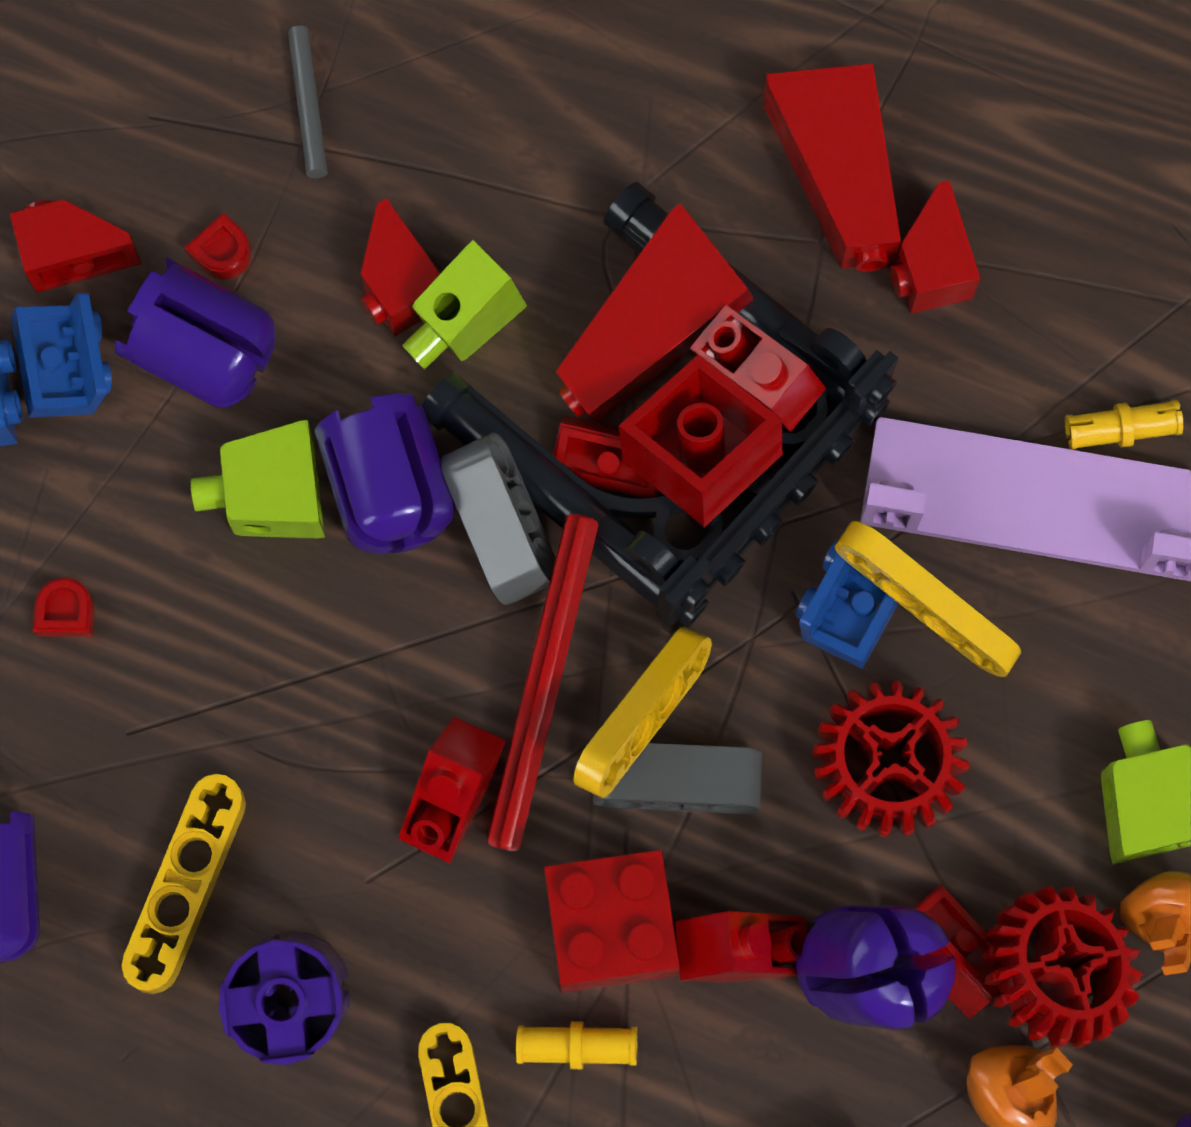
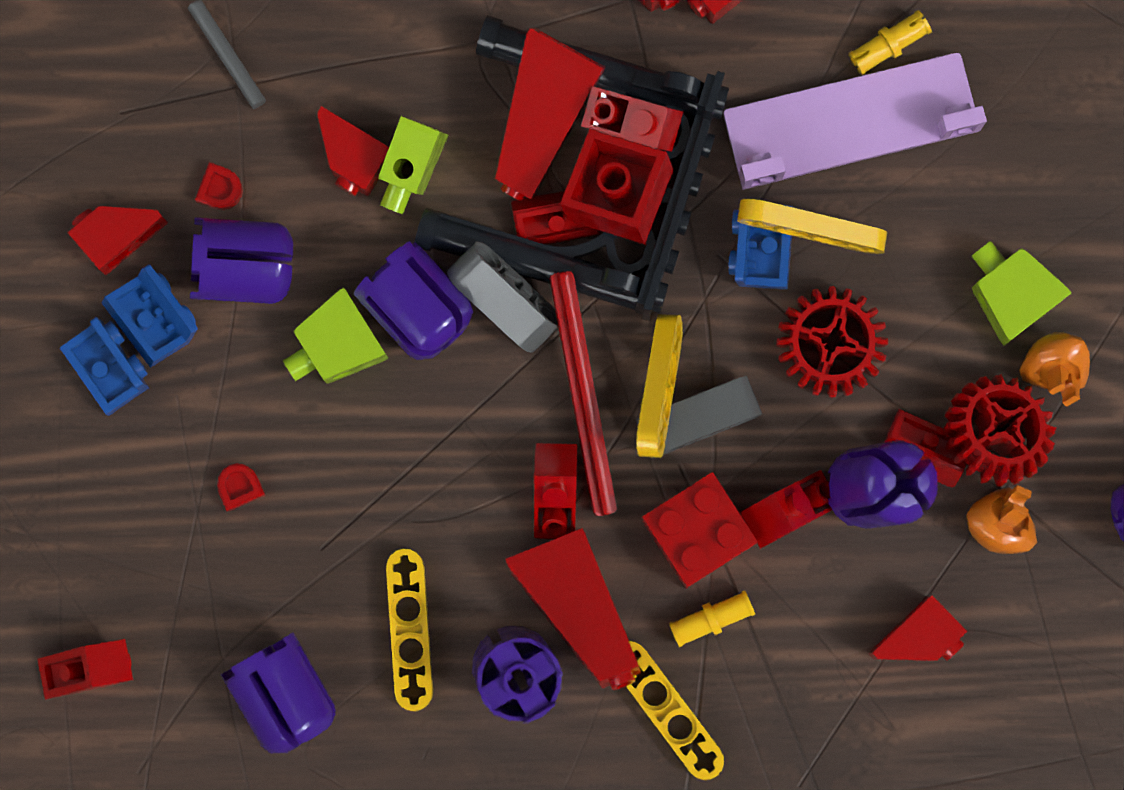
camera: 20 degrees left, 10 degrees up
(411, 941) = (575, 600): none -> red slope

